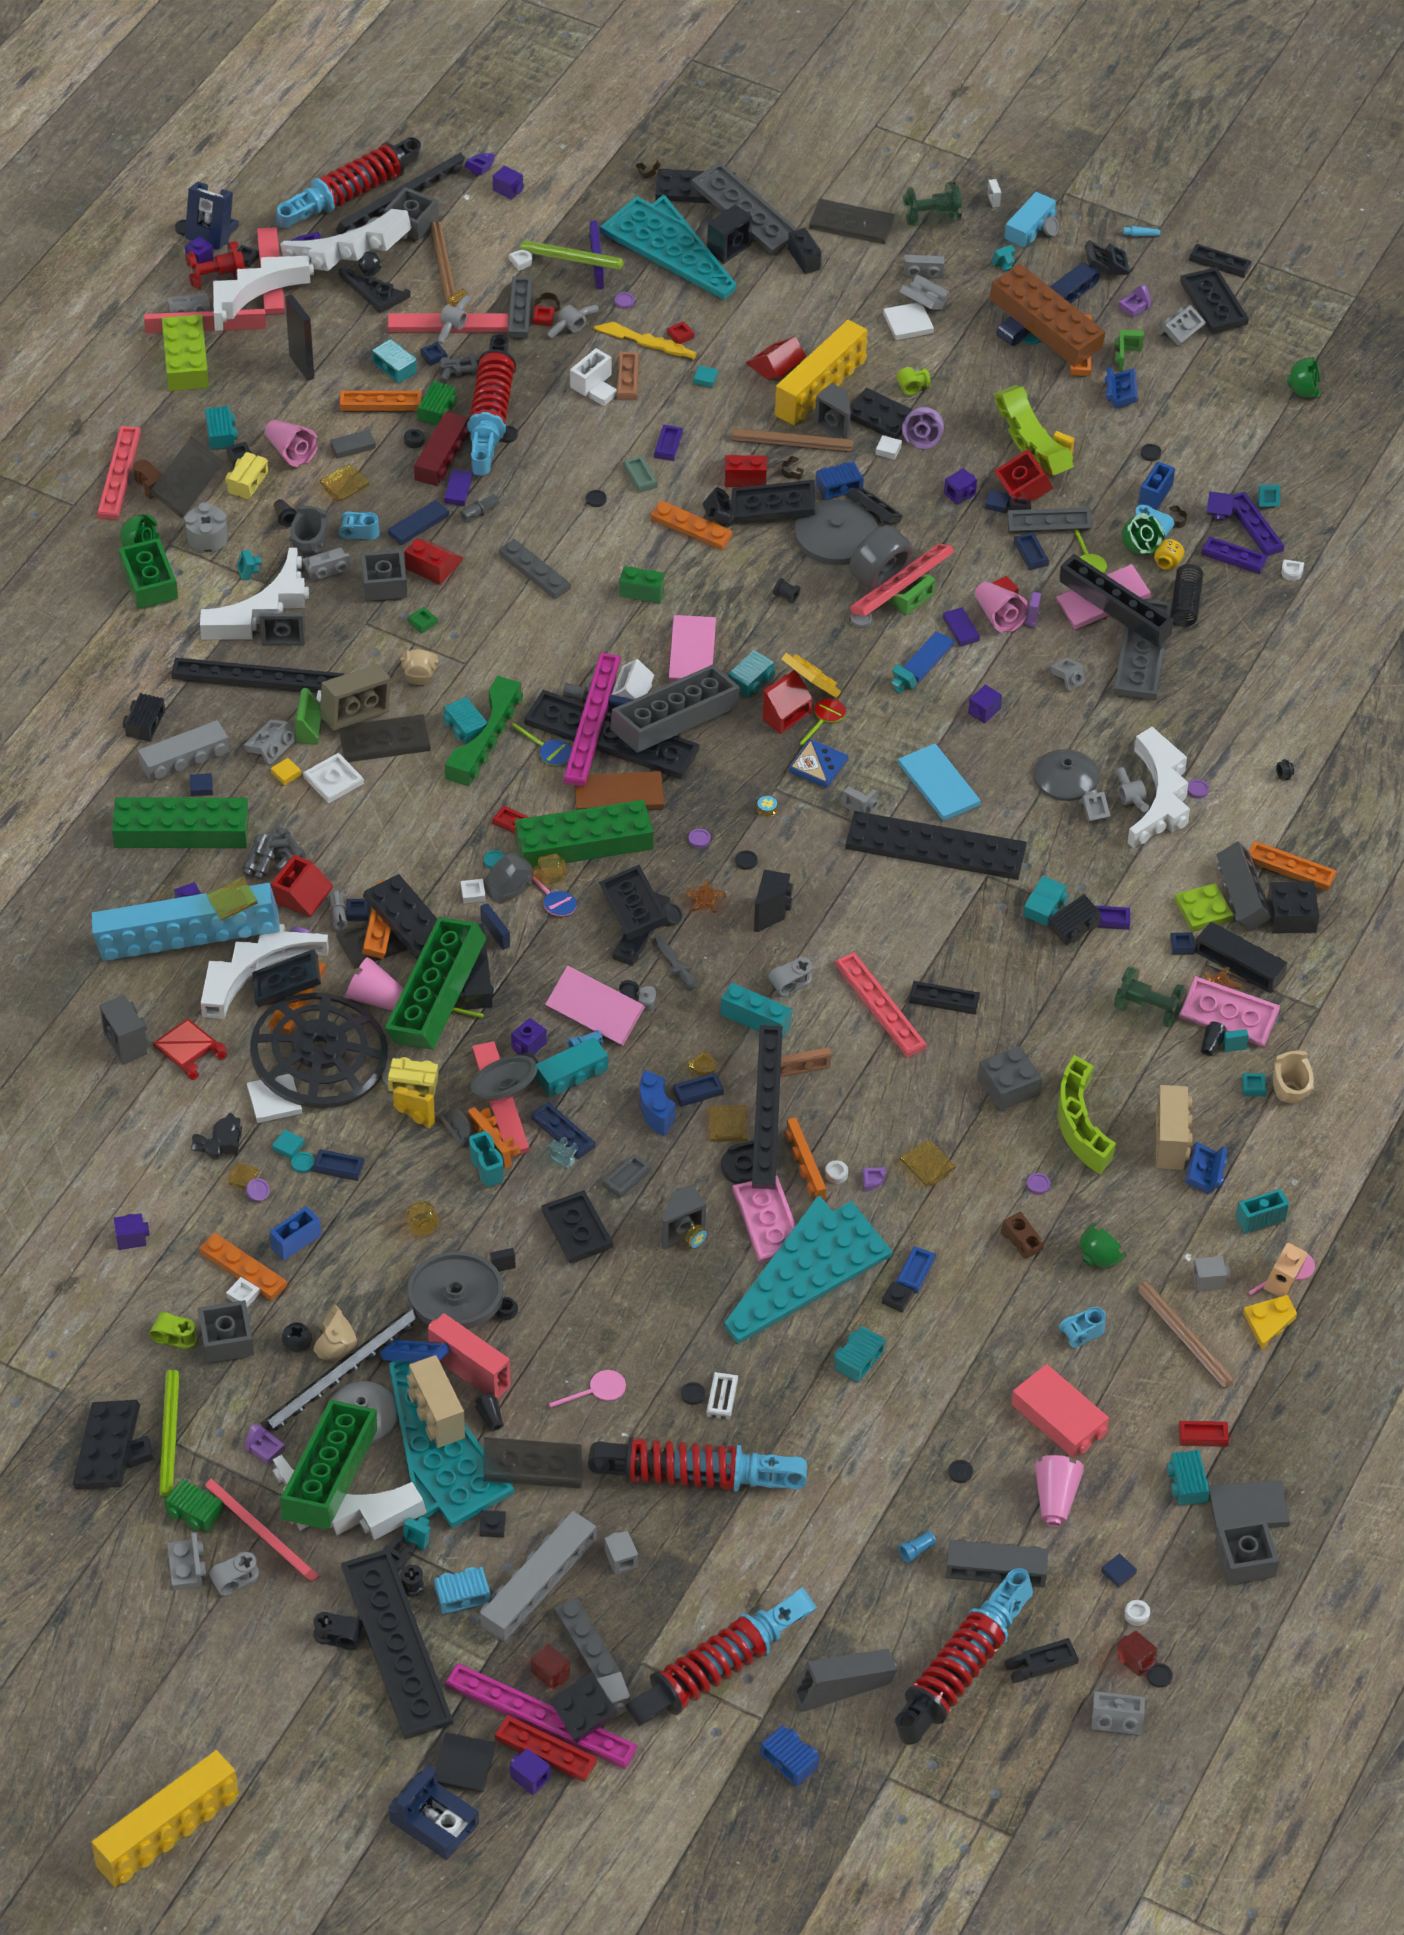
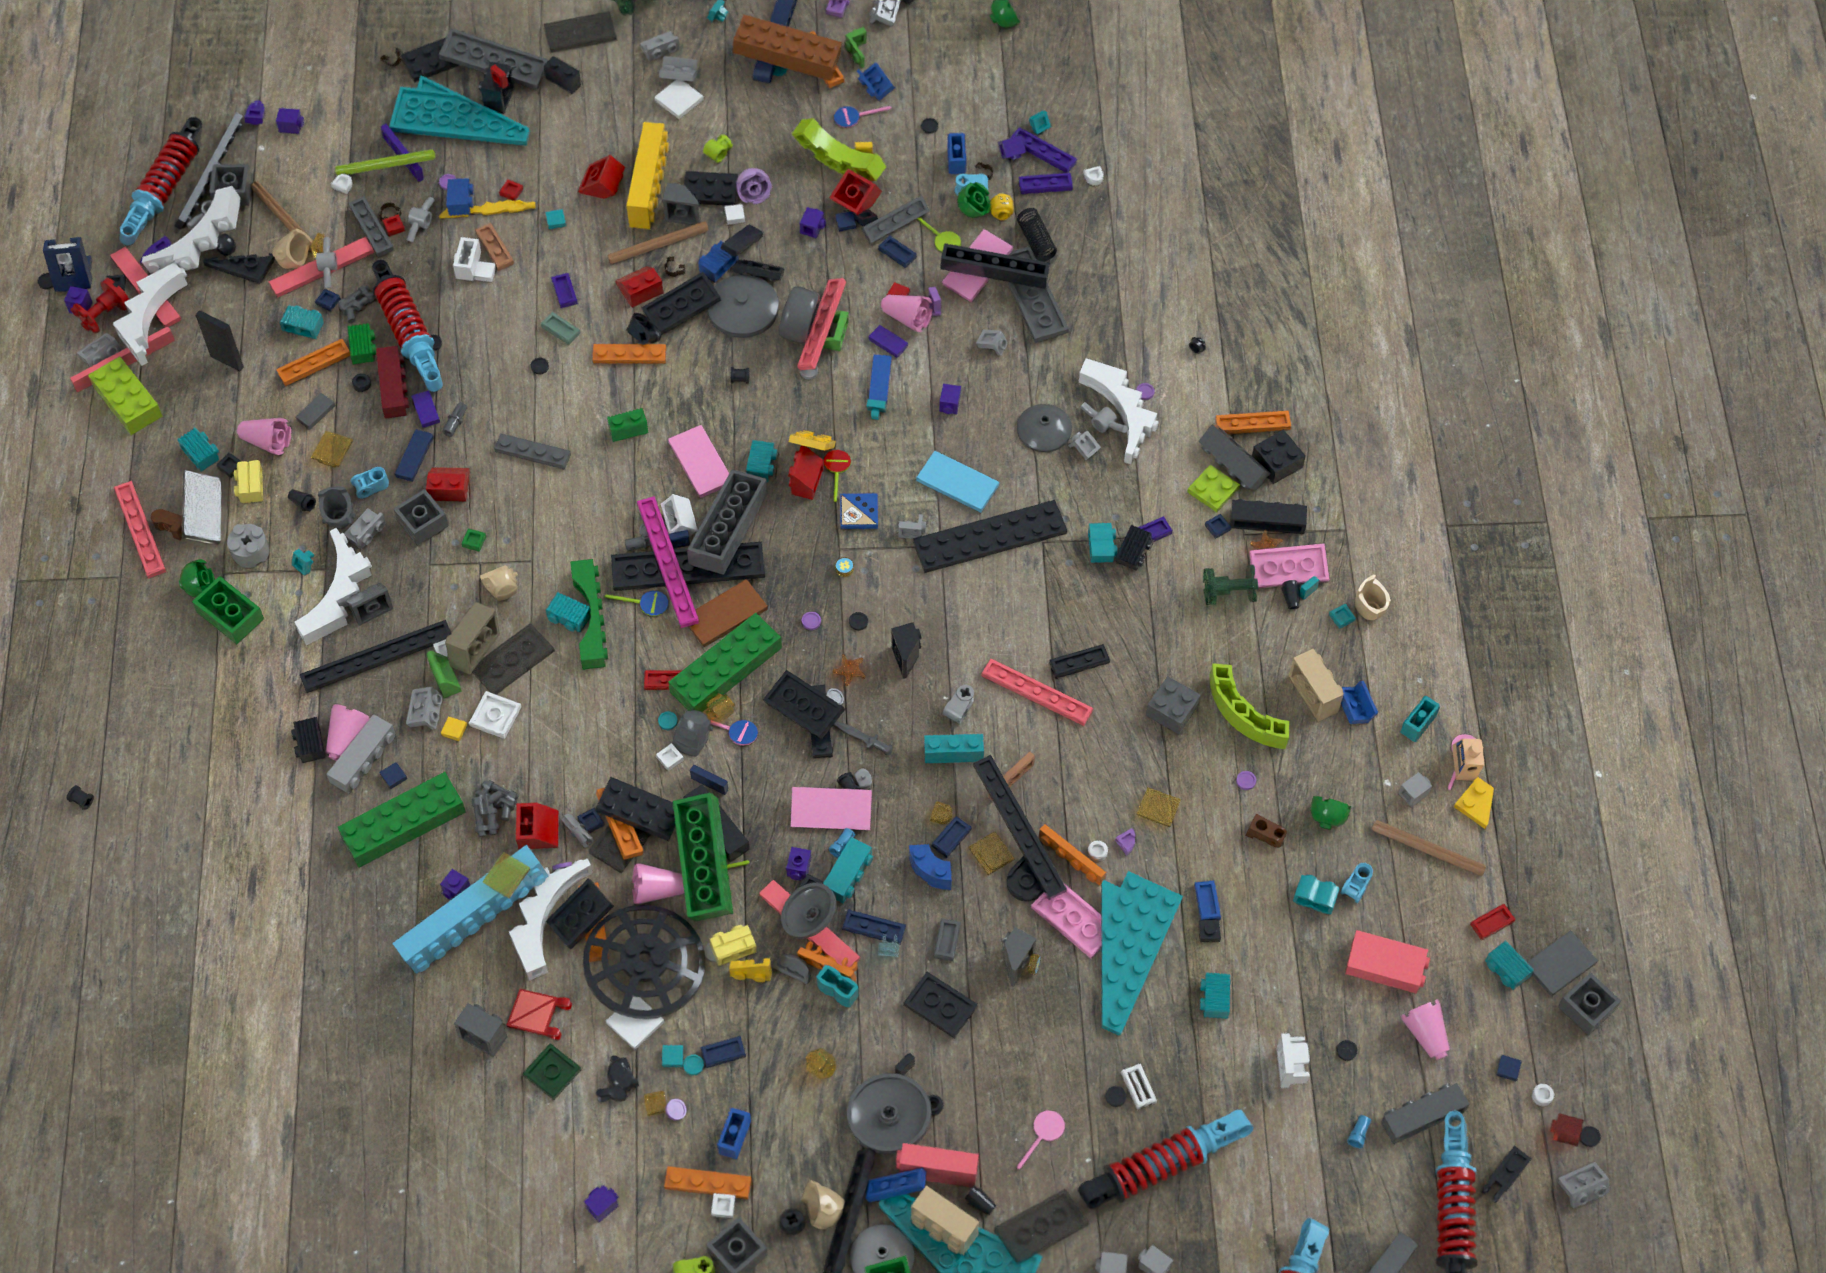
camera: 30 degrees left, 10 degrees up
(166, 1102) = (552, 1071): none -> dark green tile
(181, 718) = (343, 729): none -> bright pink cone
(429, 293) = (292, 249): none -> tan helmet
(623, 315) = (459, 196): none -> blue brick
(730, 218) = (499, 76): none -> red tile
(875, 470) = (742, 240): none -> black tile
(886, 1446) = (1292, 1055): none -> white panel
(1032, 1316) = (1316, 894): none -> teal brick
(1073, 409) = (849, 116): none -> blue piece

